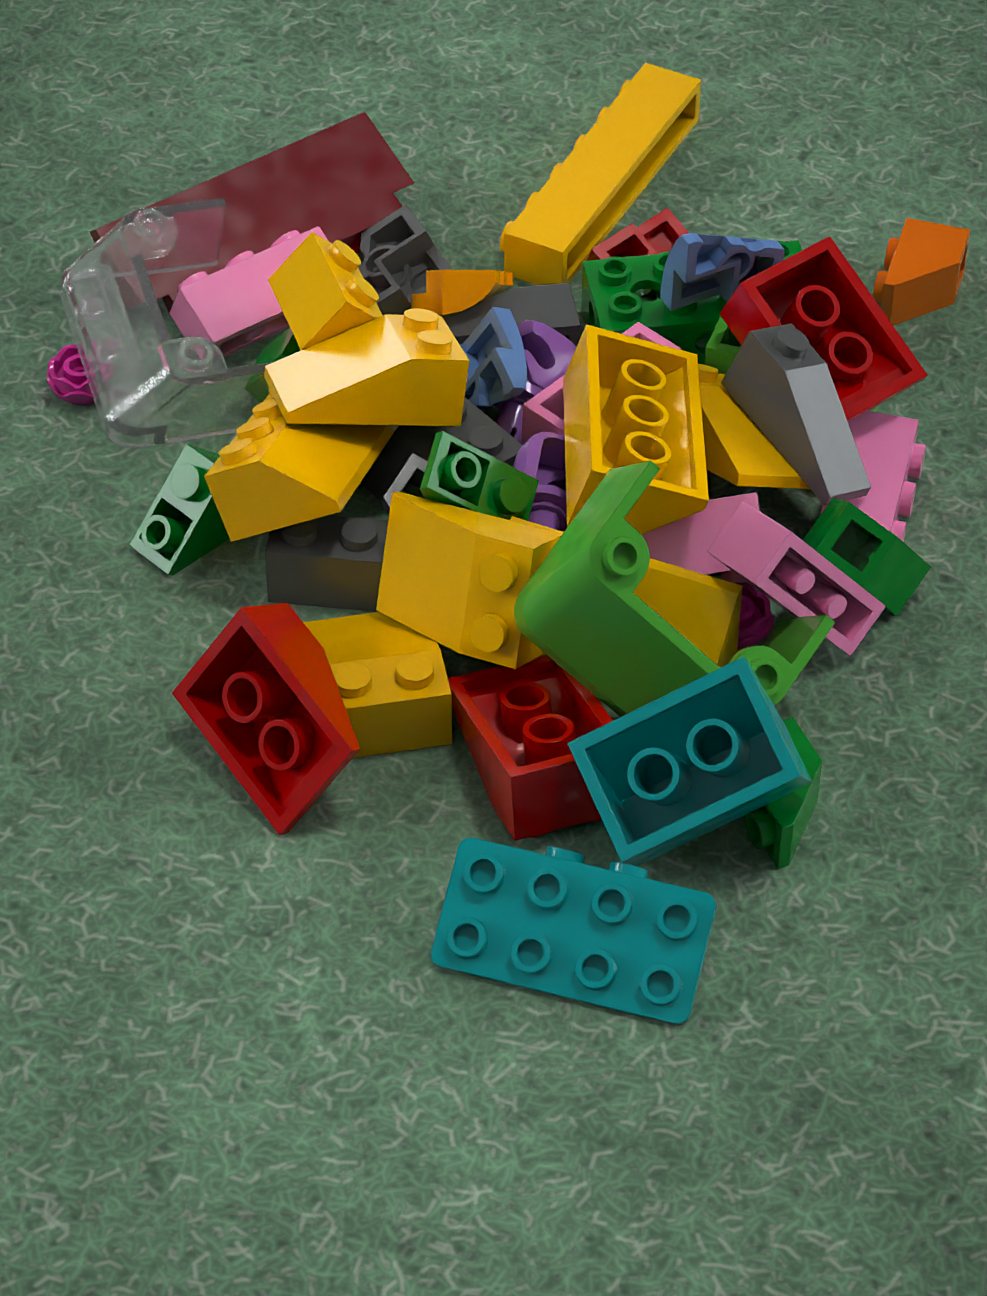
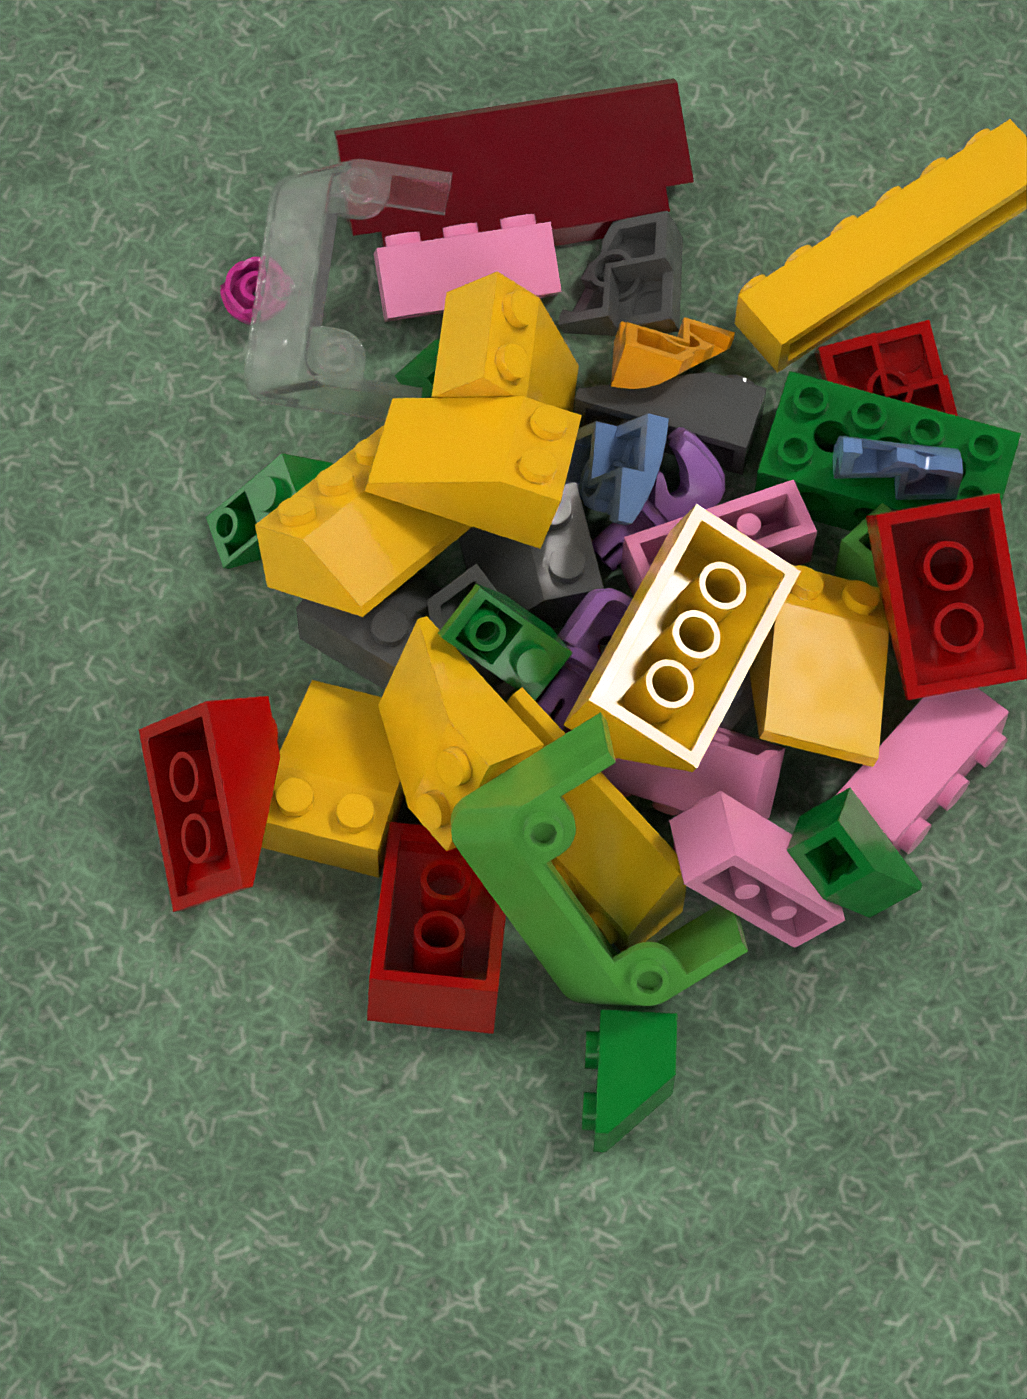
camera: 25 degrees right, 20 degrees up
(574, 929) = (365, 1142): teal bracket -> none
(688, 763) = (530, 1046): teal slope -> none
(797, 408) = (866, 681): dark grey slope -> none

